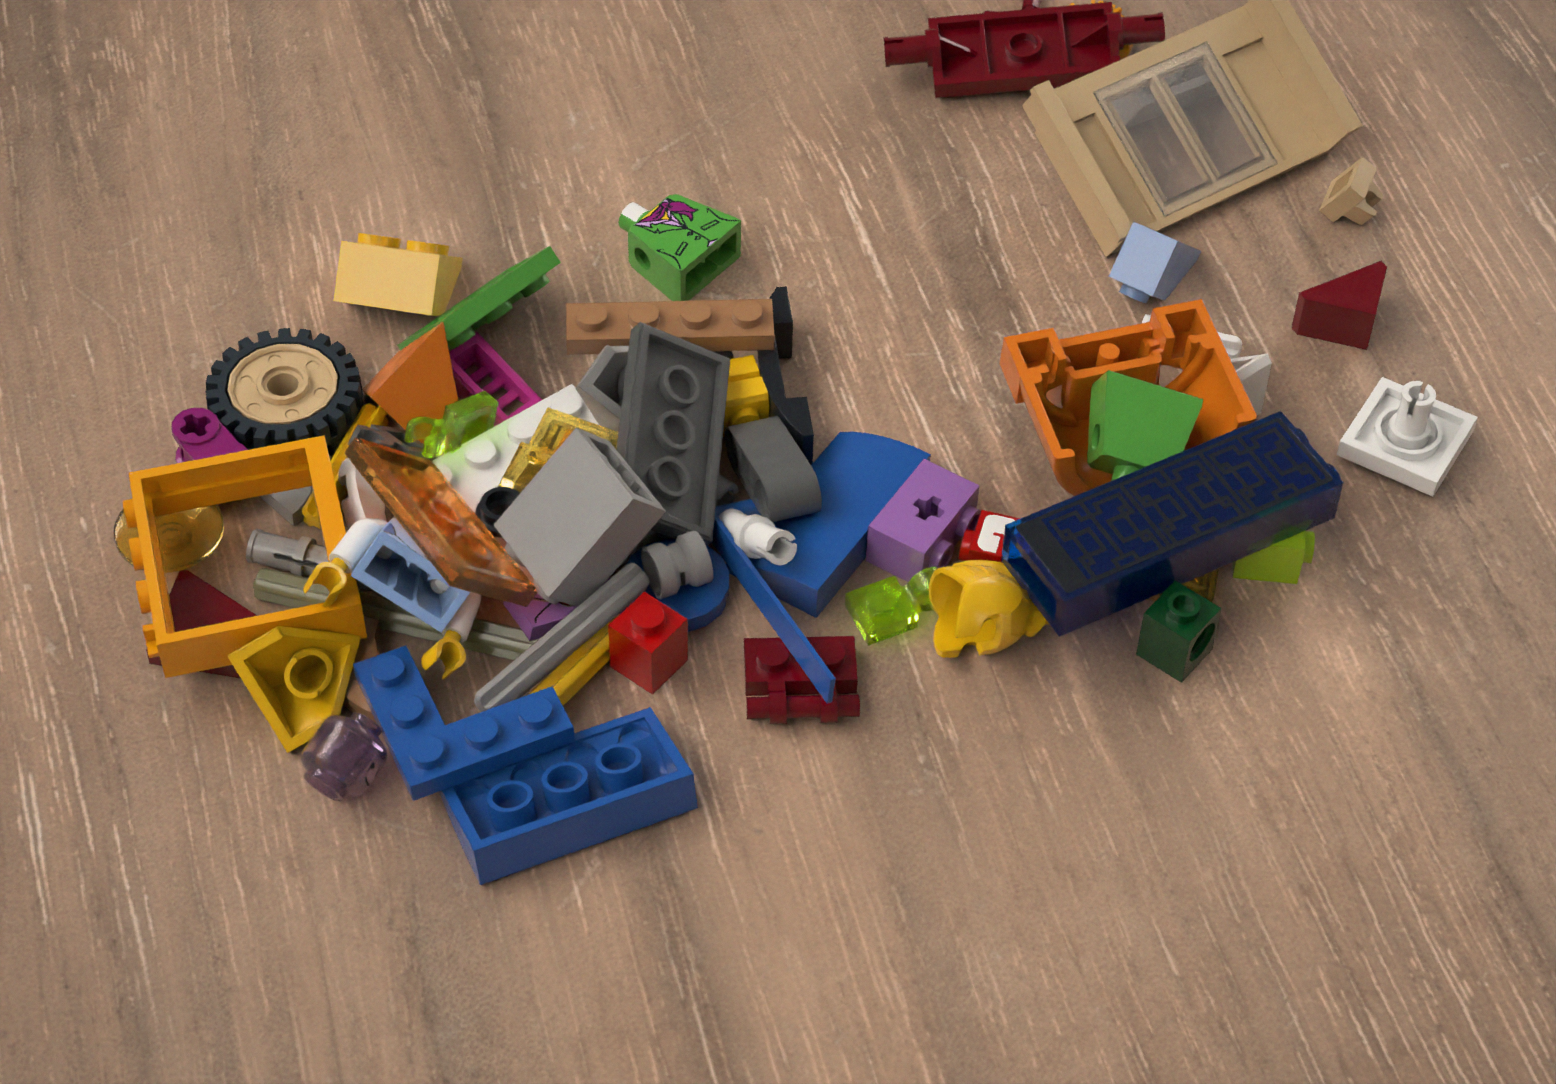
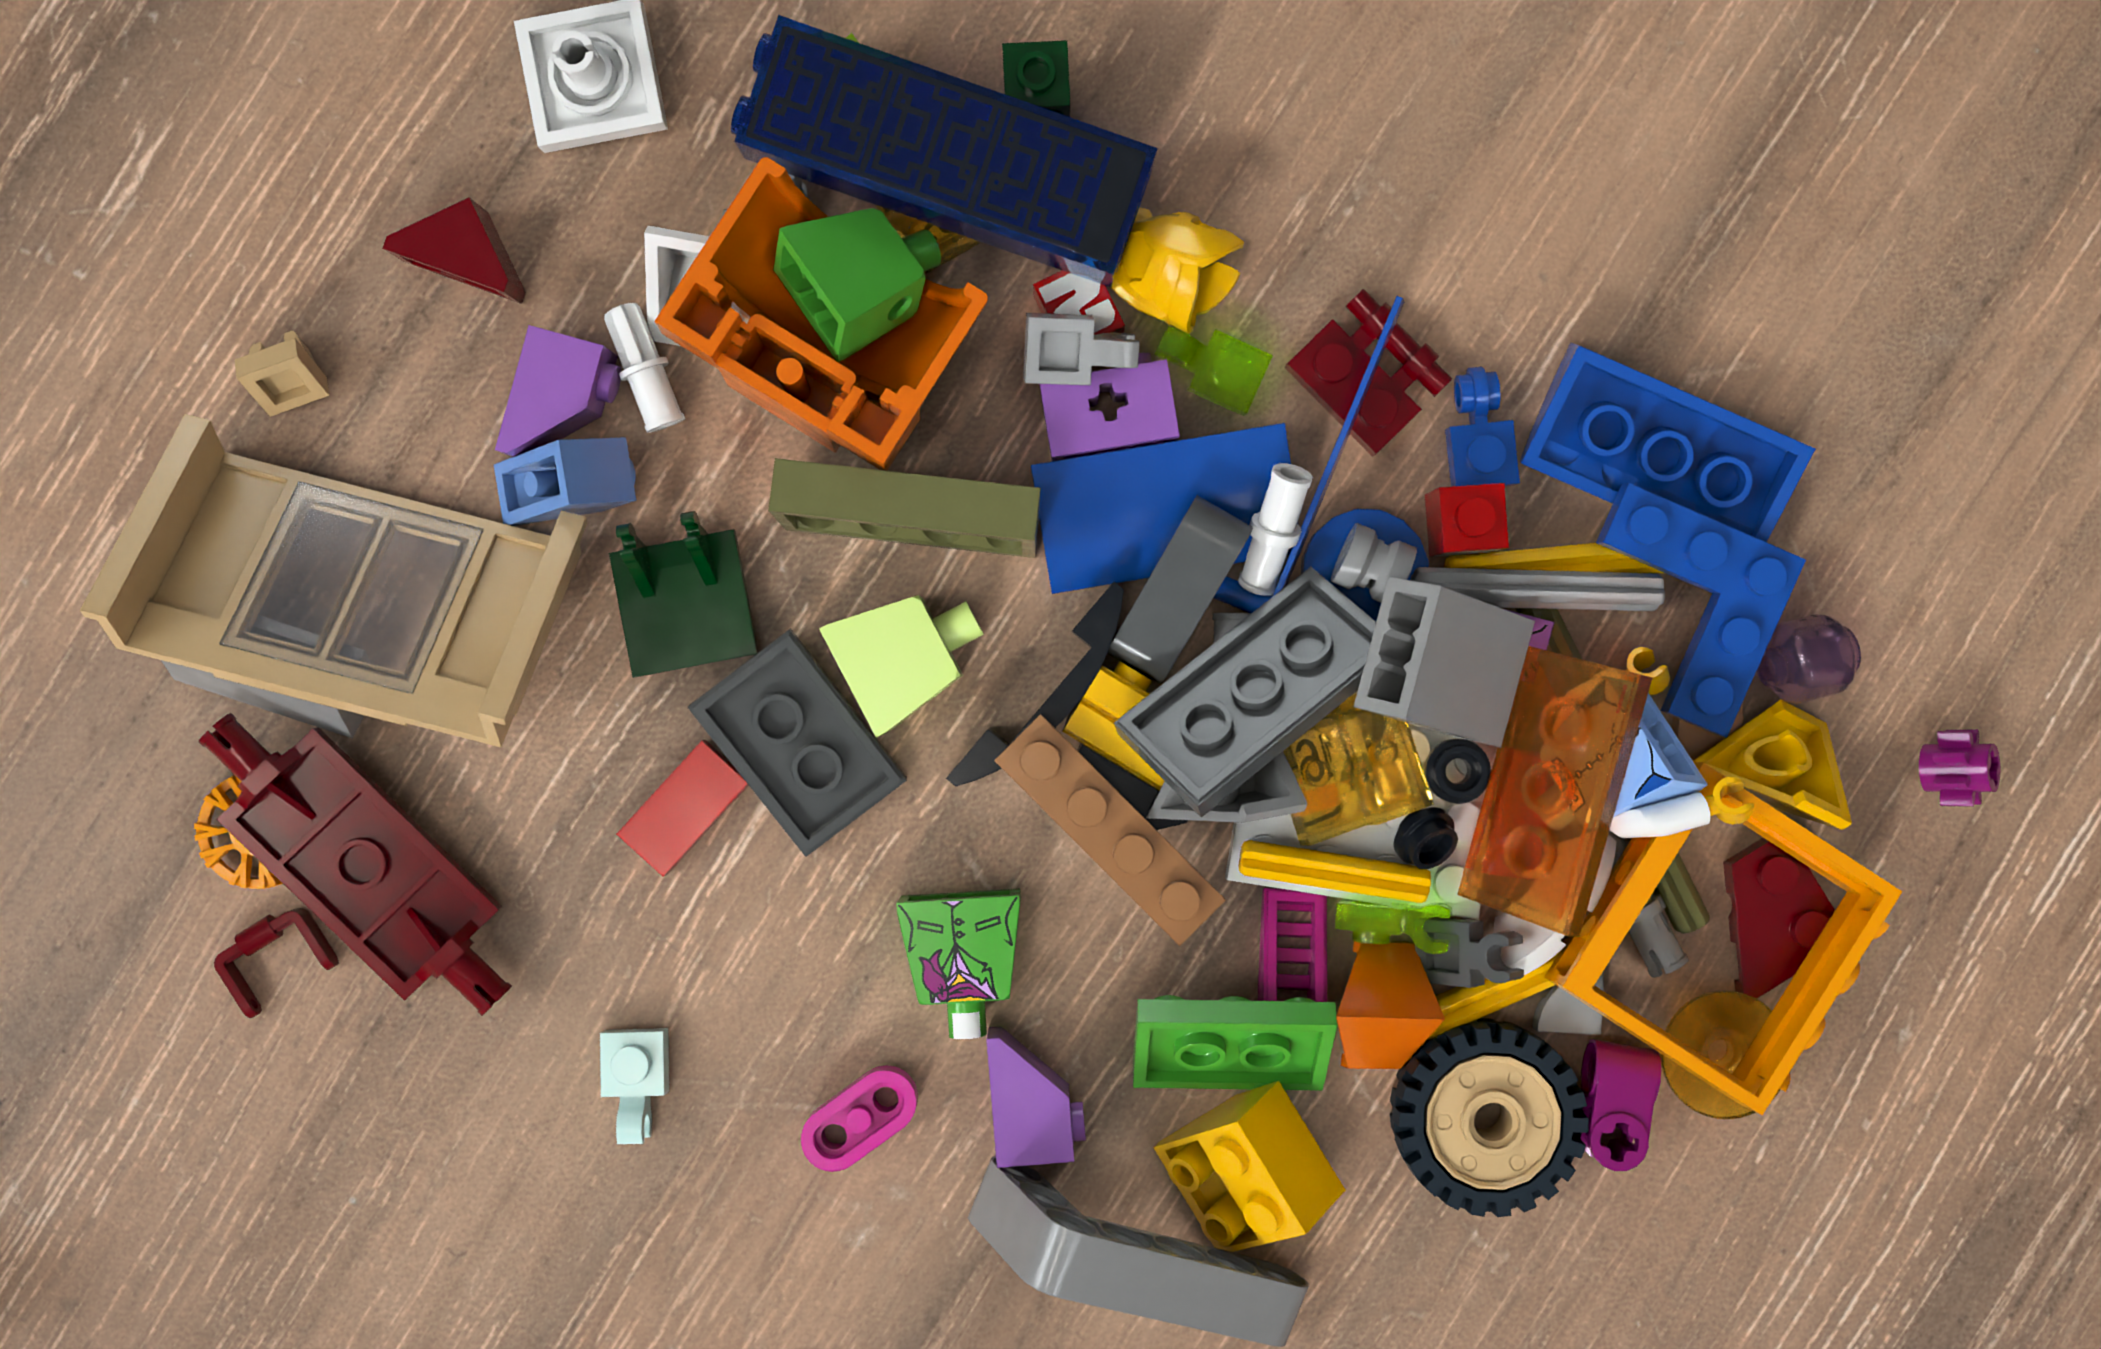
camera: 135 degrees left, 40 degrees up
(174, 780) = (1959, 768): none -> magenta gear
(411, 168) = (1129, 1267): none -> light grey beam
(483, 464) = (1426, 838): none -> black plate
(513, 418) = (1334, 871): none -> yellow axle
(560, 213) = (1029, 1106): none -> medium lavender slope
(639, 148) = (861, 1116): none -> dark pink plate
(686, 700) = (1480, 450): none -> blue plate
(776, 88) = (634, 1068): none -> light aqua plate
(883, 261) = (797, 742): none -> dark grey tile
(884, 328) = (899, 656): none -> yellowish green torso
(902, 197) = (683, 808): none -> tile
(958, 362) = (905, 508): none -> olive slope
(979, 494) = (1065, 349): none -> light grey plate
(1028, 268) = (682, 599): none -> dark green plate
(1225, 287) = (556, 390): none -> medium lavender slope

